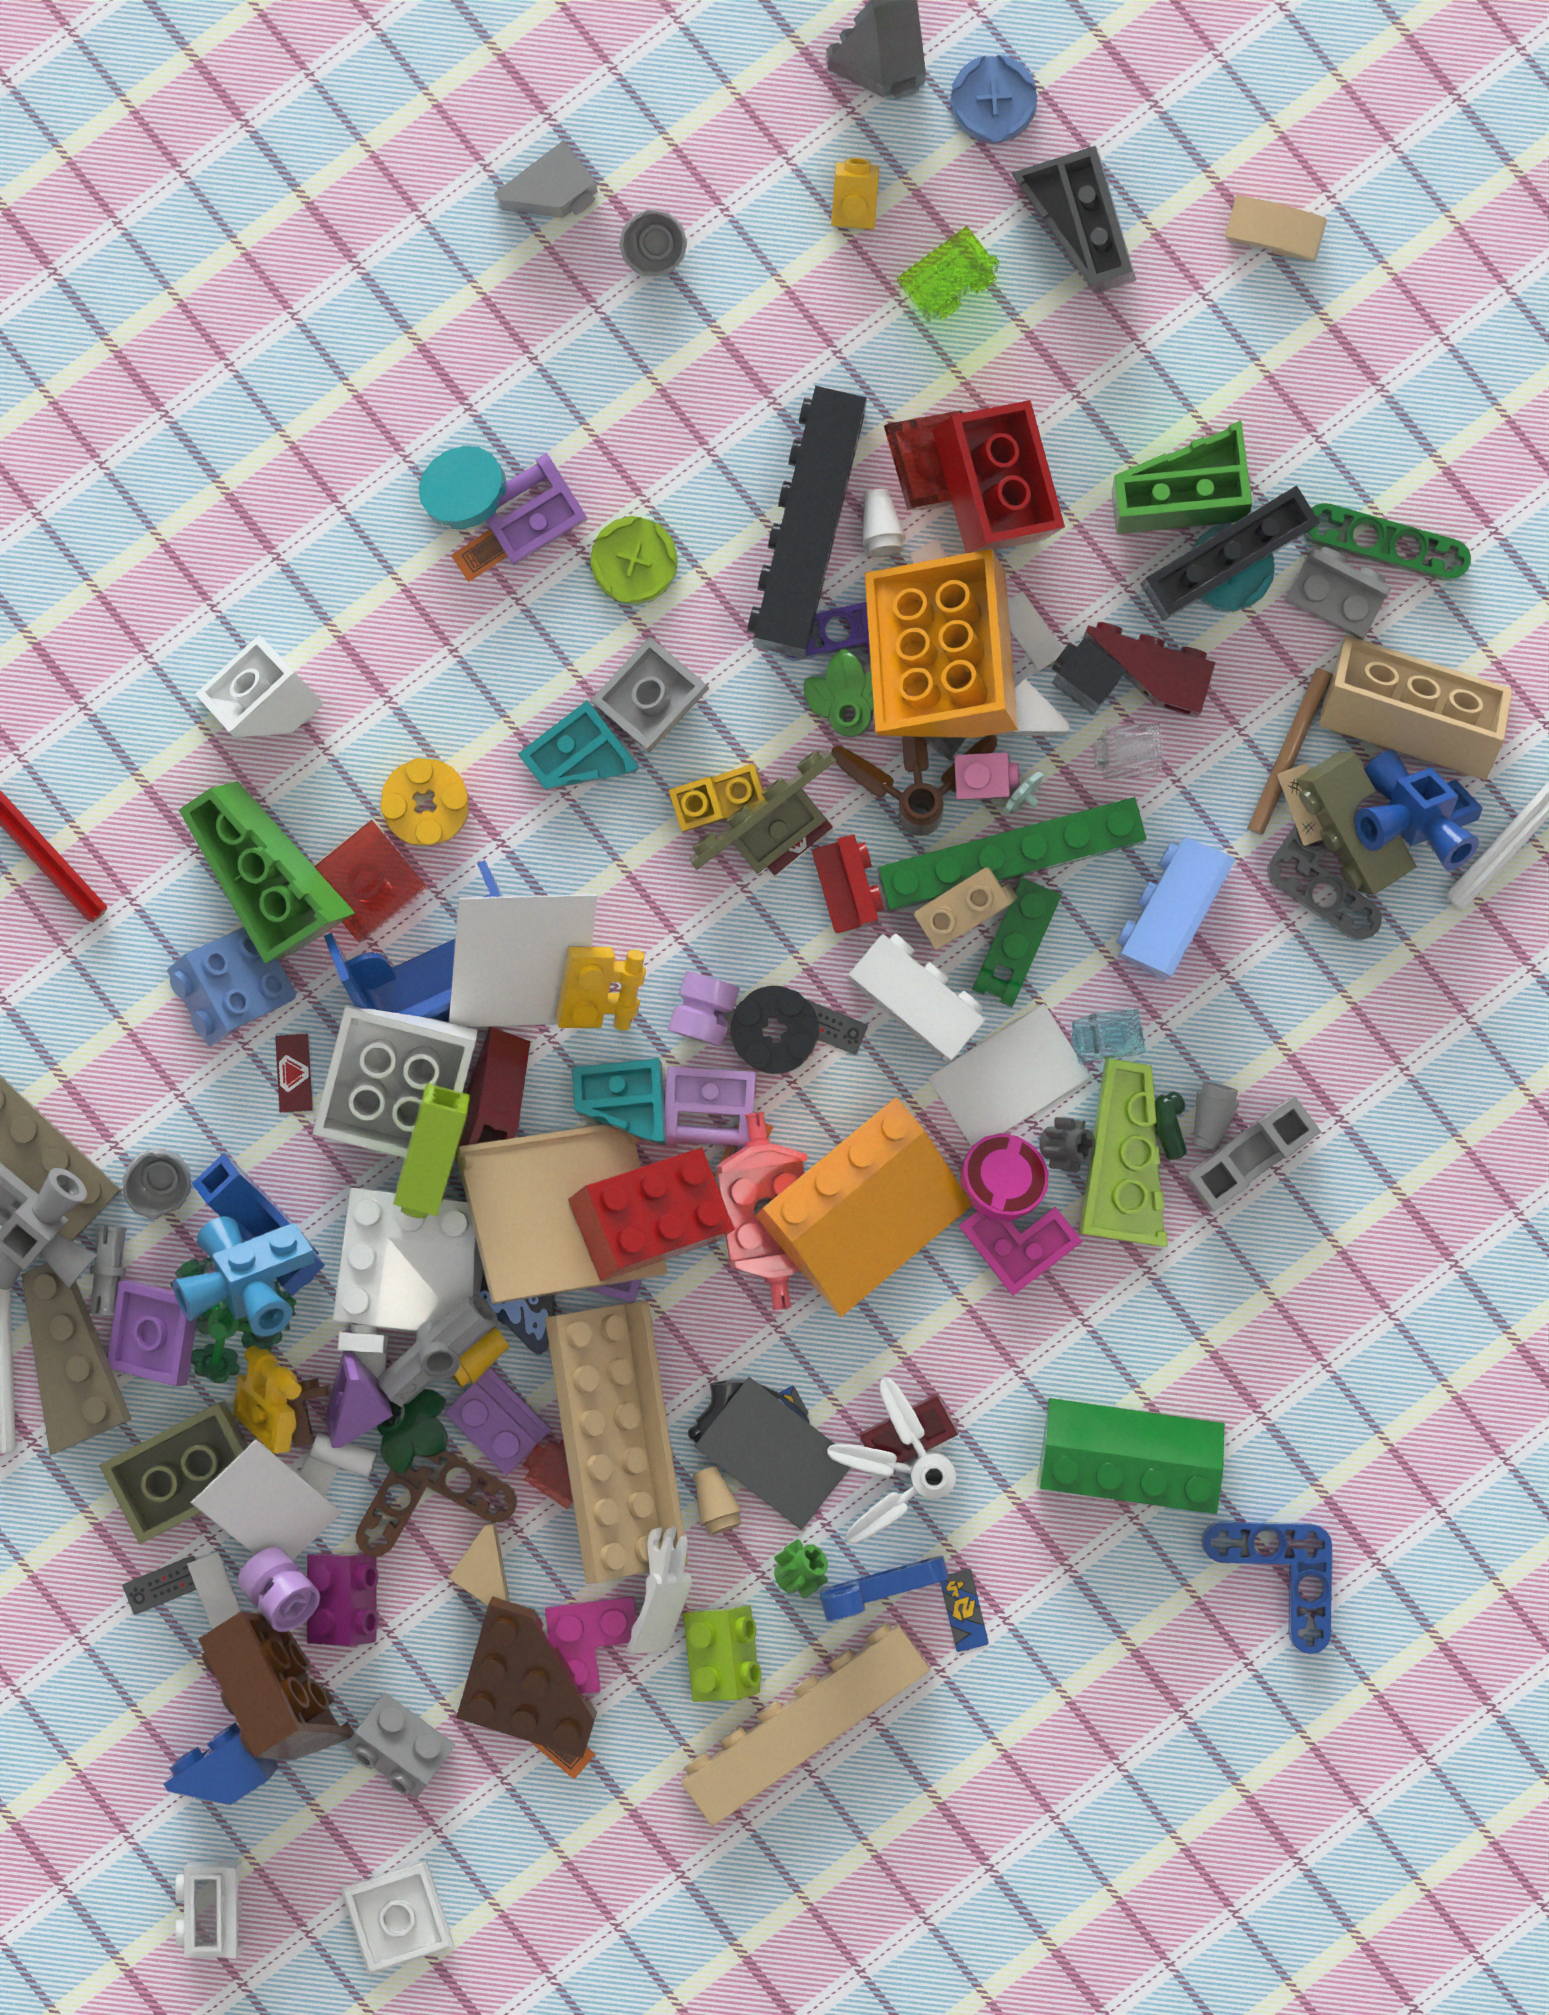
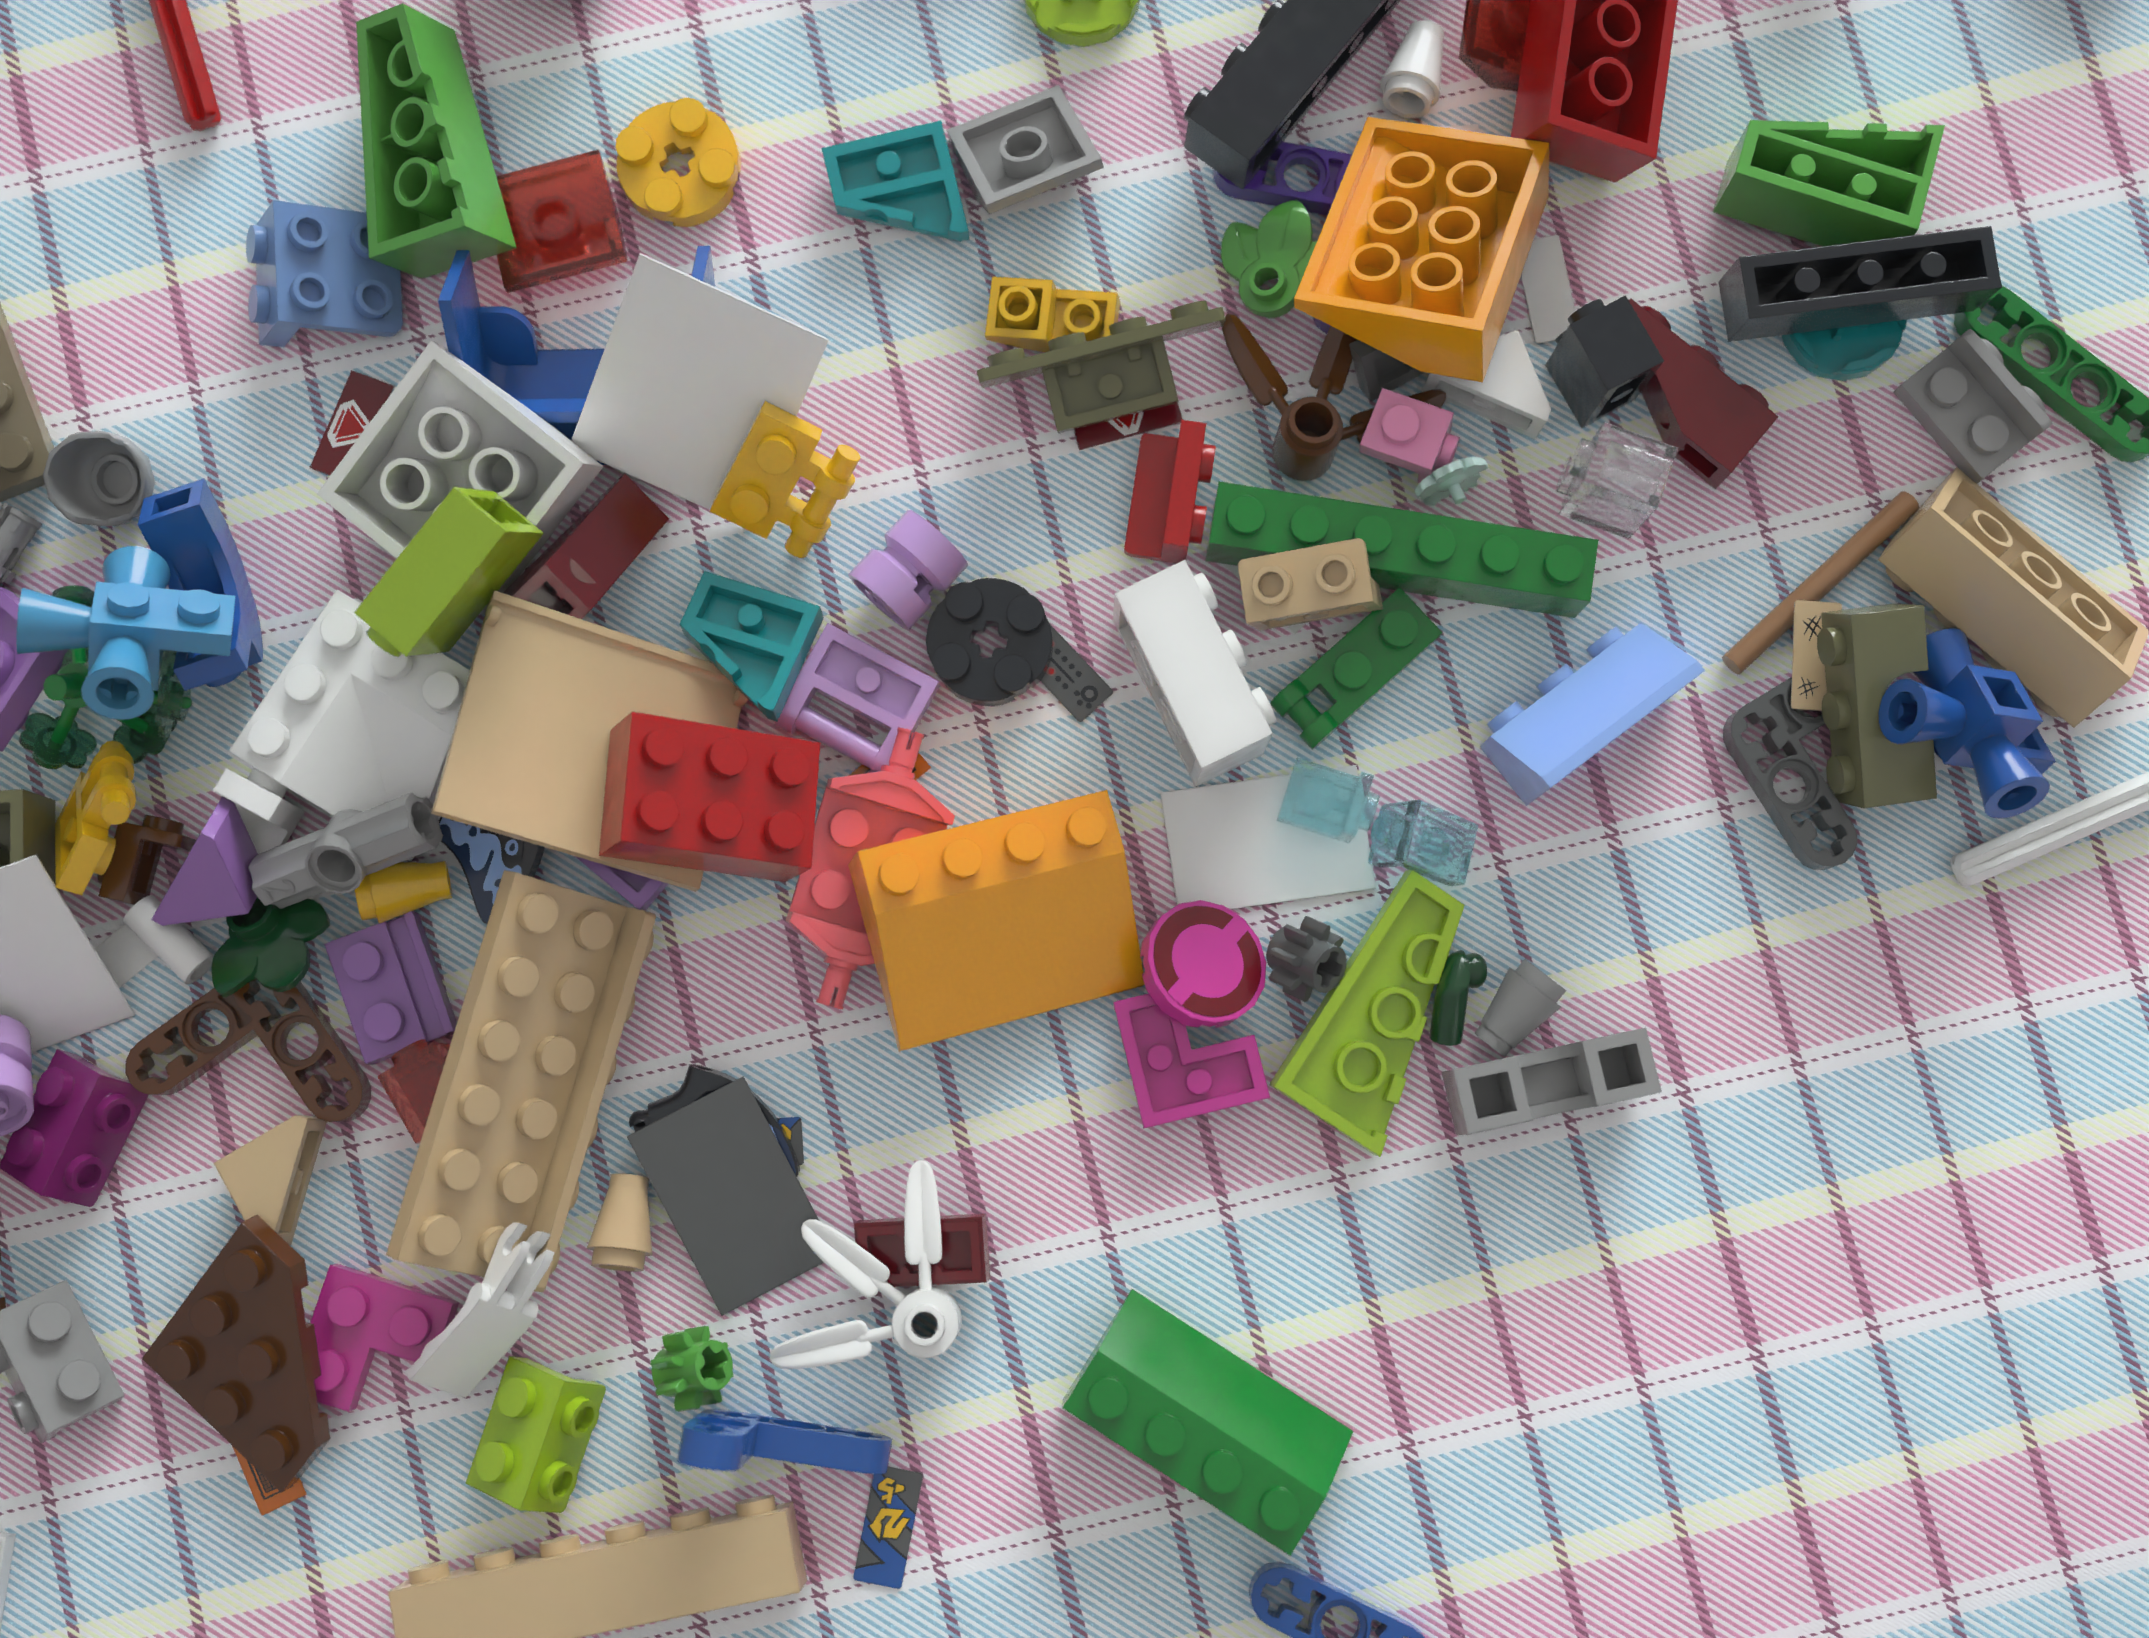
camera: 25 degrees right, 5 degrees down
(1036, 1036) = (1328, 801): none -> clear light blue bracket

